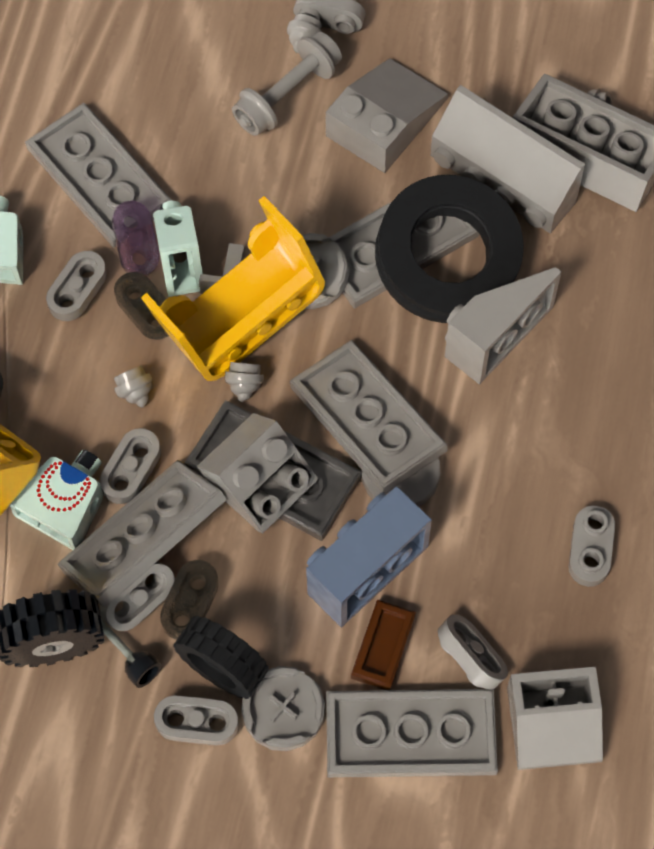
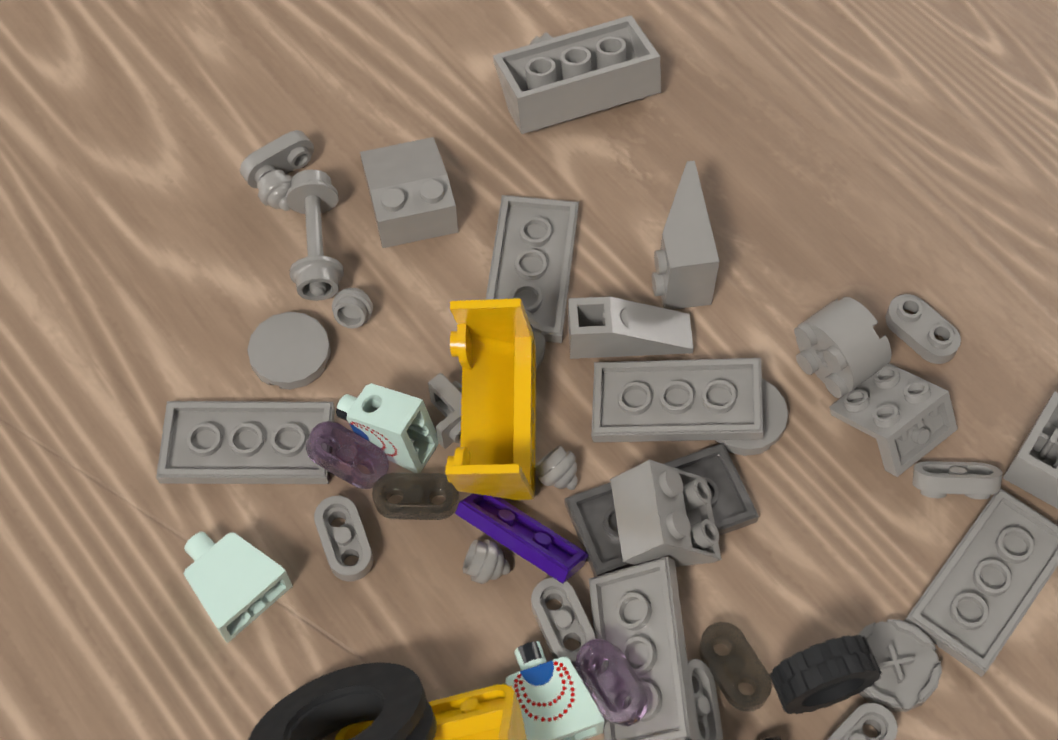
camera: 50 degrees left, 5 degrees down
(103, 524) = (614, 684): none -> clear purple plate
(171, 394) = (523, 535): none -> dark purple tile
(188, 143) = (289, 350): none -> light grey tile
(254, 153) = (352, 307): none -> light grey plate
(367, 555) = (818, 489): sand blue brick -> none
(383, 645) = (894, 543): reddish brown tile -> none
(393, 338) = (625, 328): none -> light grey slope
(450, 197) = (597, 187): black tyre -> none
(490, 576) = (900, 413): none -> light grey bracket
(504, 491) = (841, 346): none -> light grey brick
(509, 158) = (542, 134): light grey slope -> none

